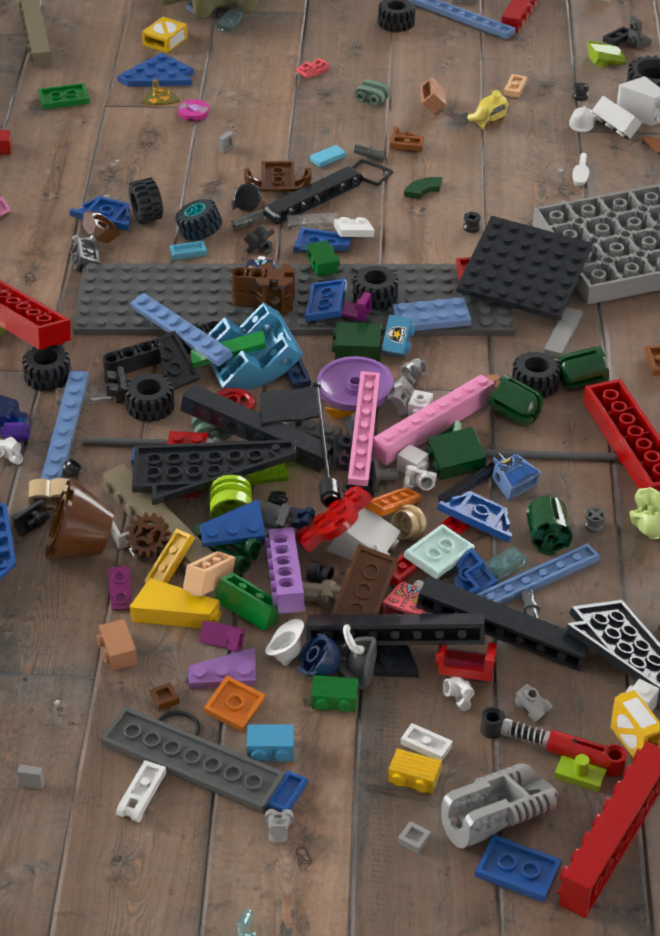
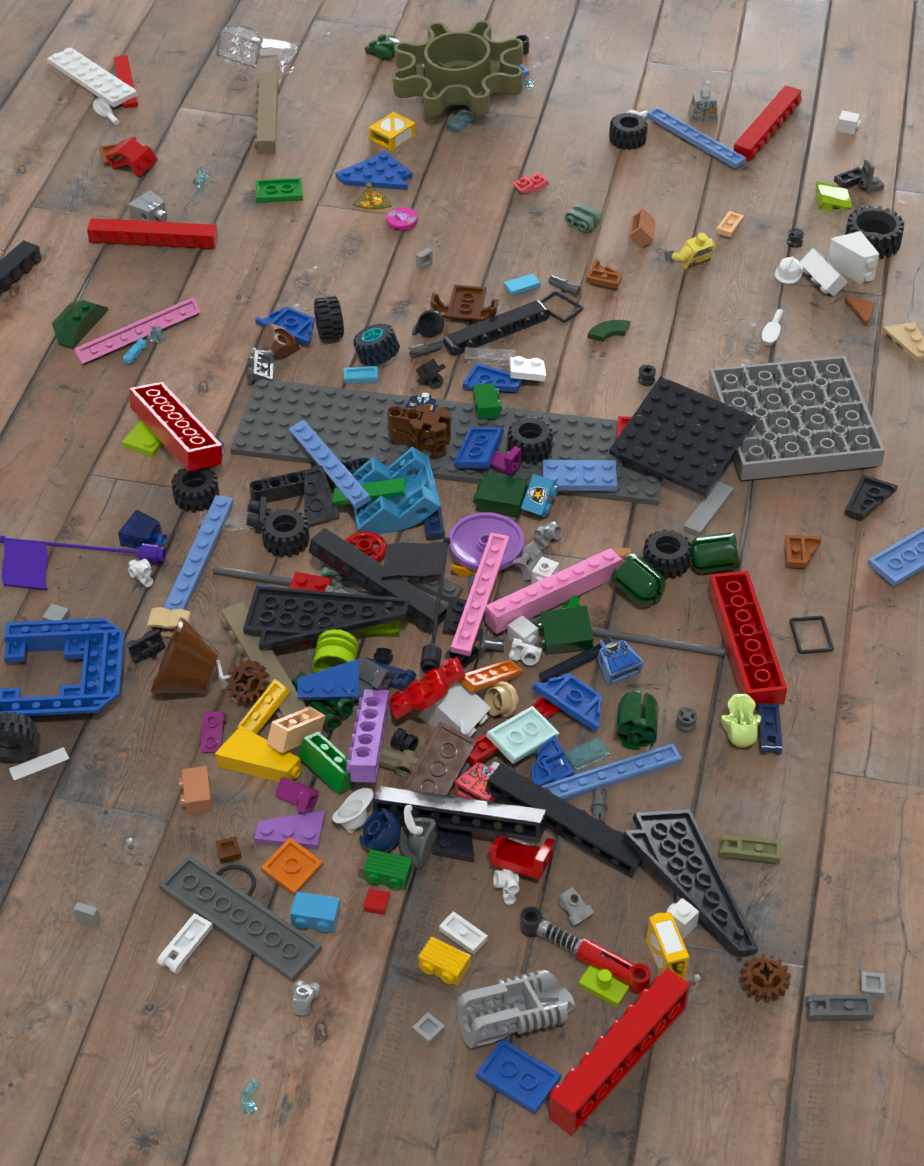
camera: 10 degrees right, 5 degrees up
(72, 468) = (196, 598): black plate -> none
(288, 792) = (320, 965): blue tile -> none
(329, 725) = (376, 901): none -> red tile

